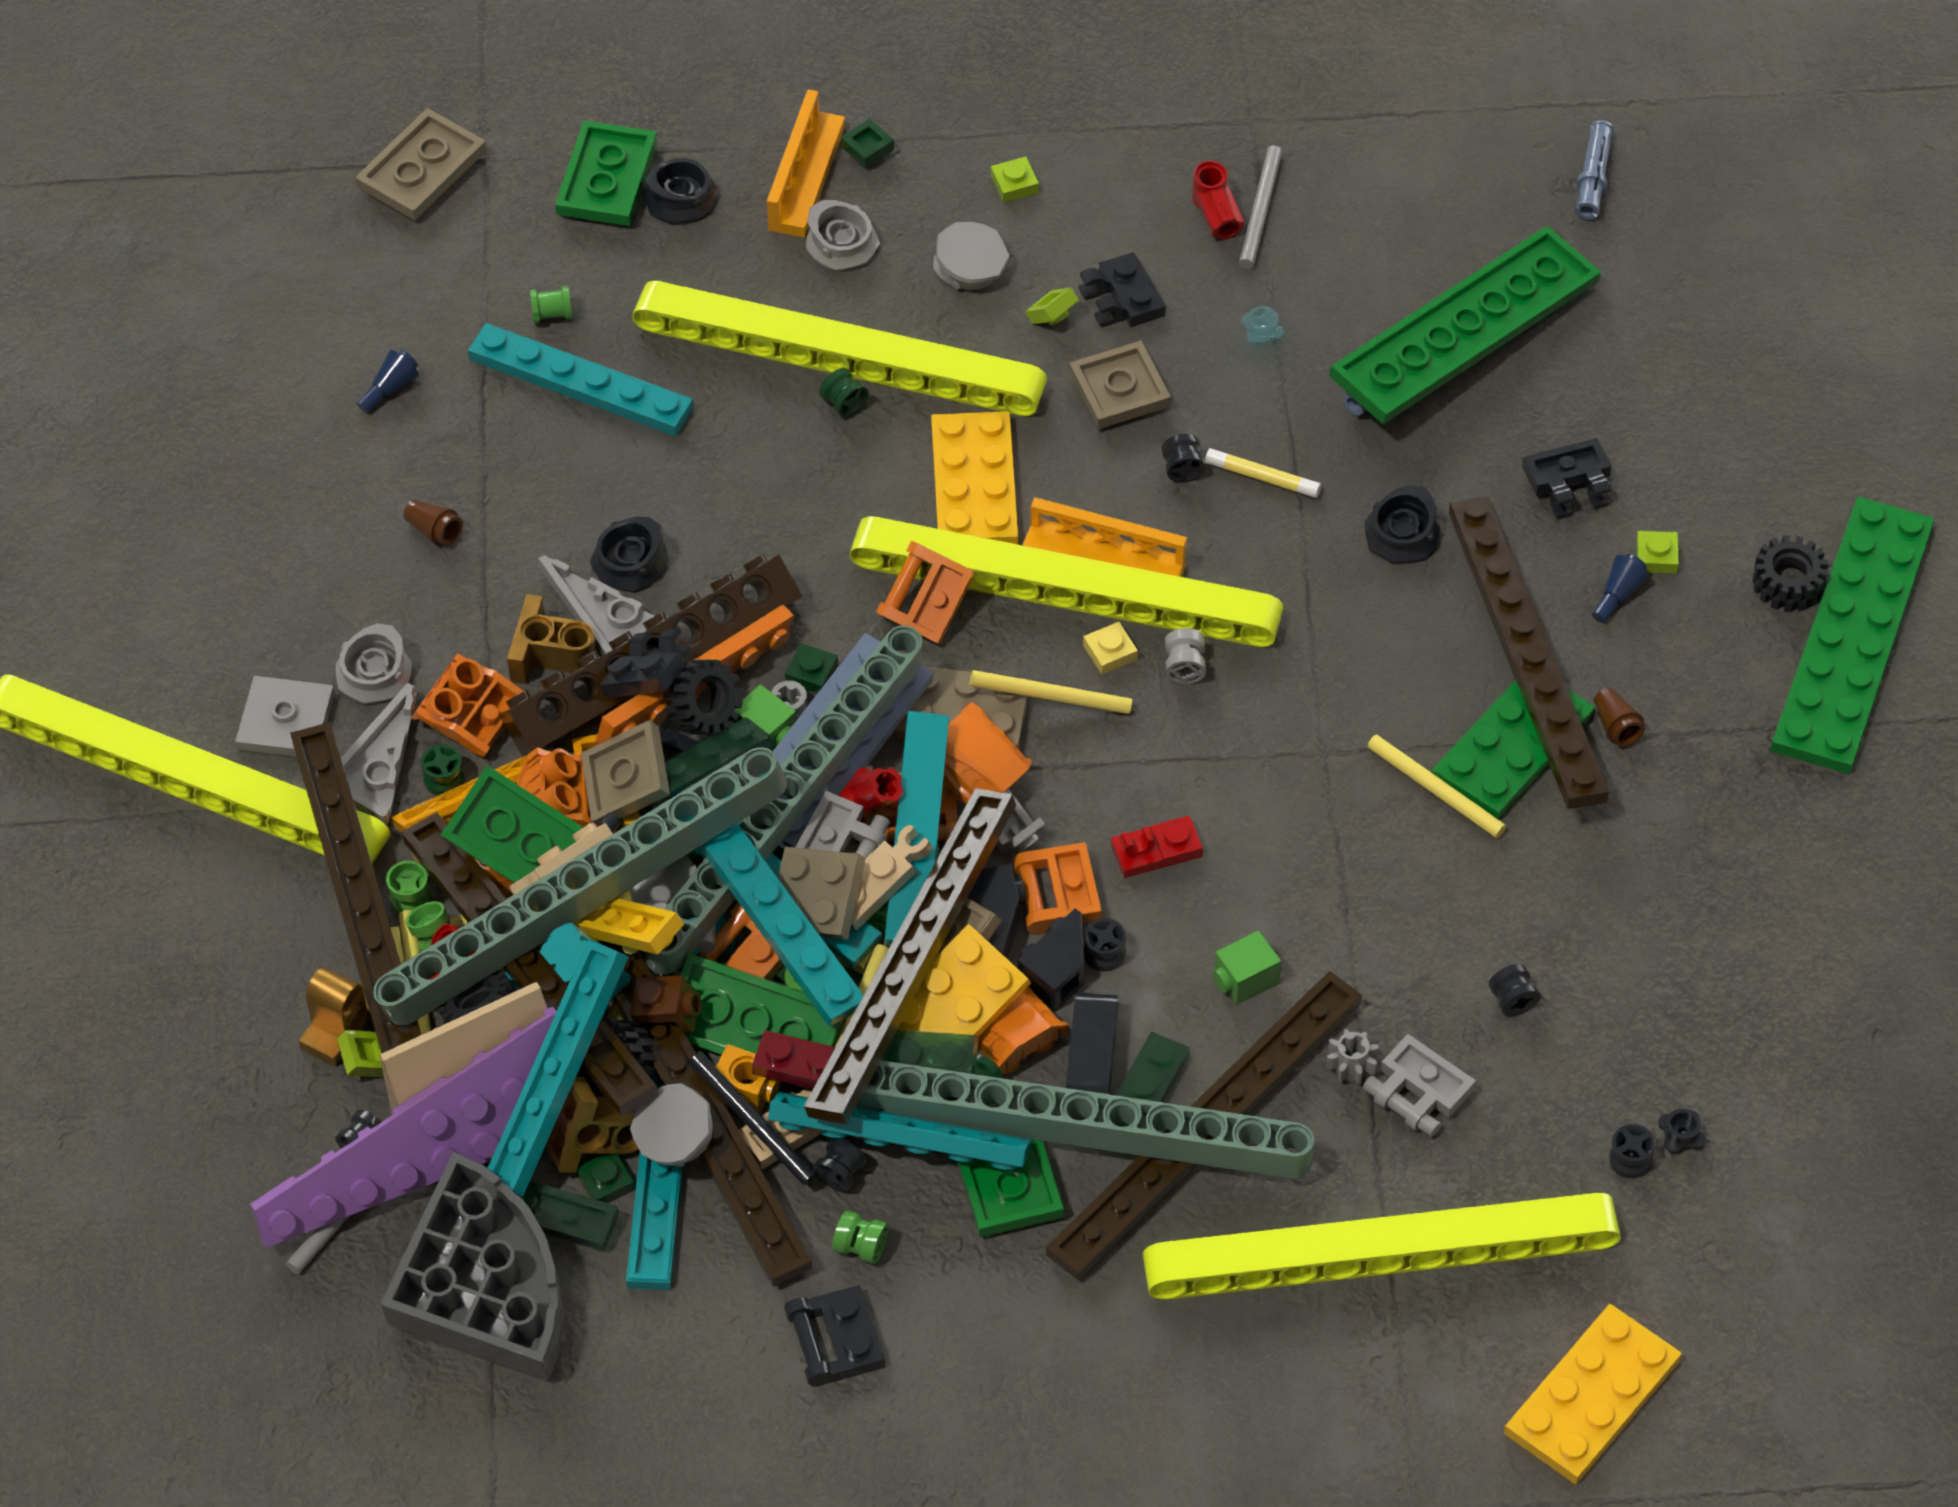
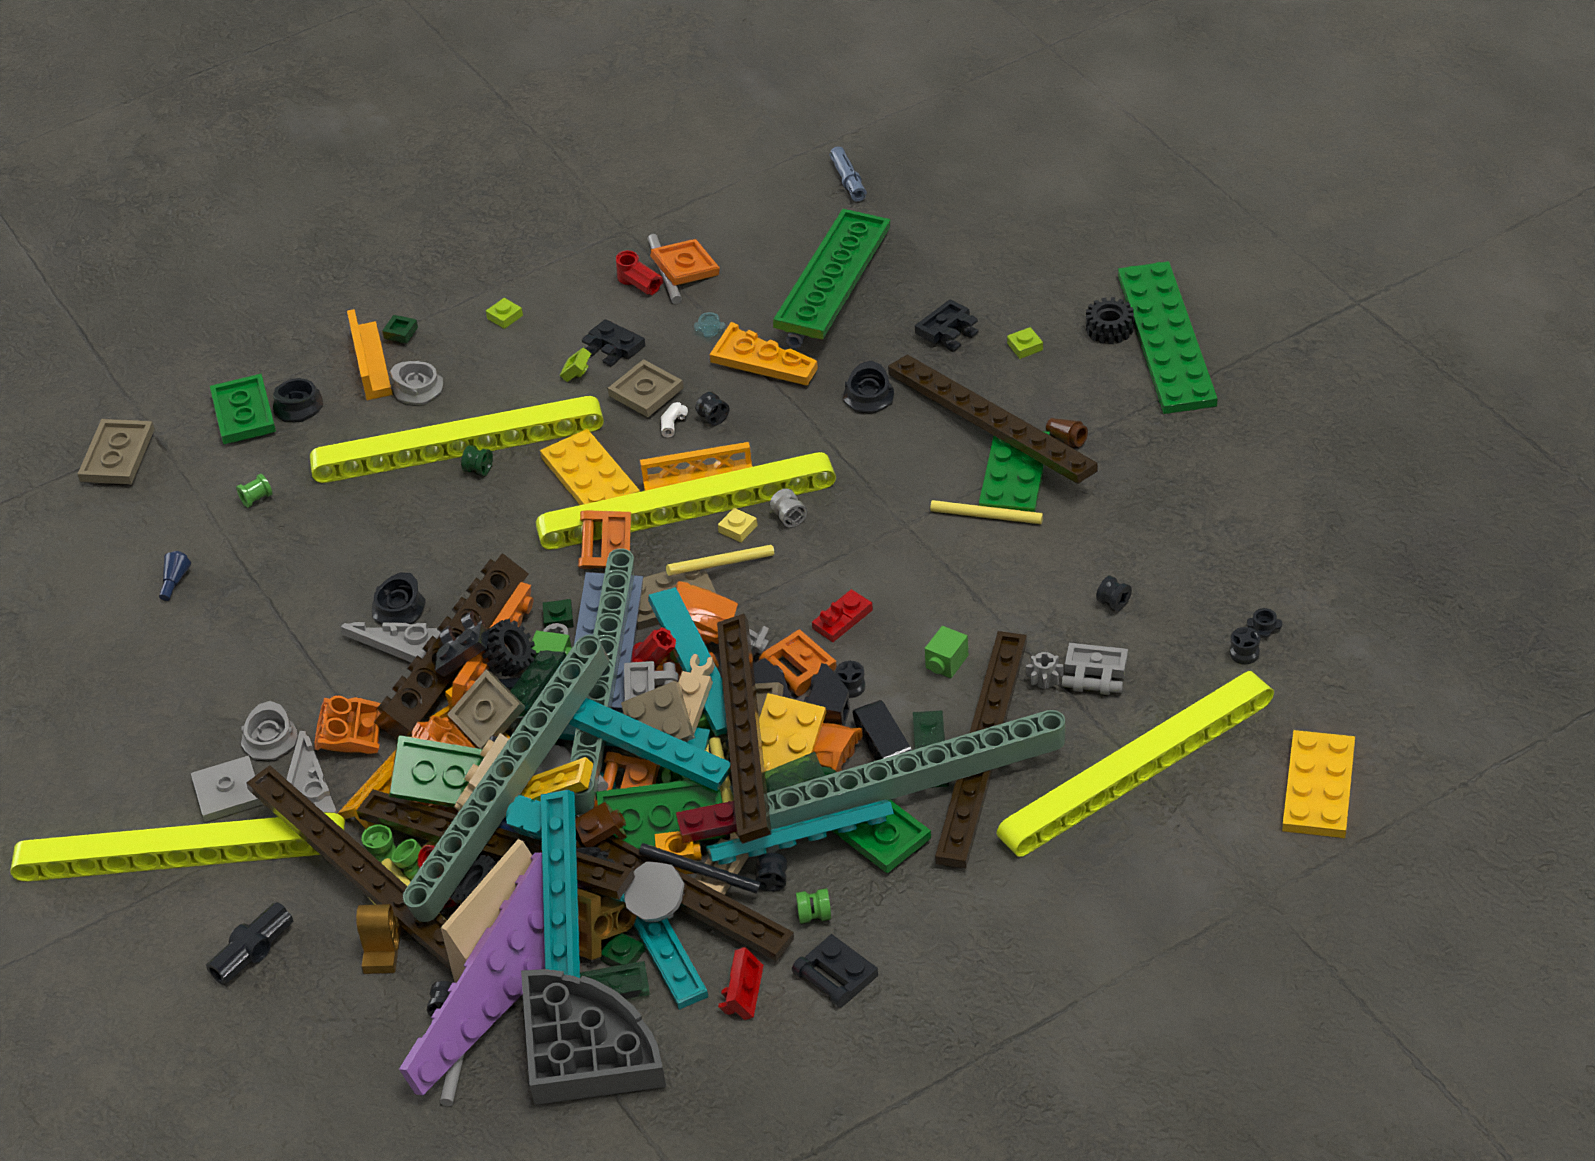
camera: 25 degrees left, 10 degrees down
(191, 943) = (249, 943): none -> black piece
(360, 1053) = (411, 953): lime plate -> none
(435, 522) = (256, 637): reddish brown cone -> none
(443, 759) = (354, 770): dark green wheel -> none
(546, 641) = (379, 668): pearl gold tile -> none
(580, 379) = (299, 523): teal plate -> none
(714, 1297) = (743, 986): none -> red plate
(969, 255) = (505, 360): light grey hat -> none
(1119, 446) = (675, 411): none -> white arm
(1263, 473) = (765, 398): light yellow bar -> none
(1290, 211) = (684, 262): none -> orange tile
(1290, 400) = (752, 354): none -> light orange wing
(1624, 578) = (1017, 360): dark blue cone -> none

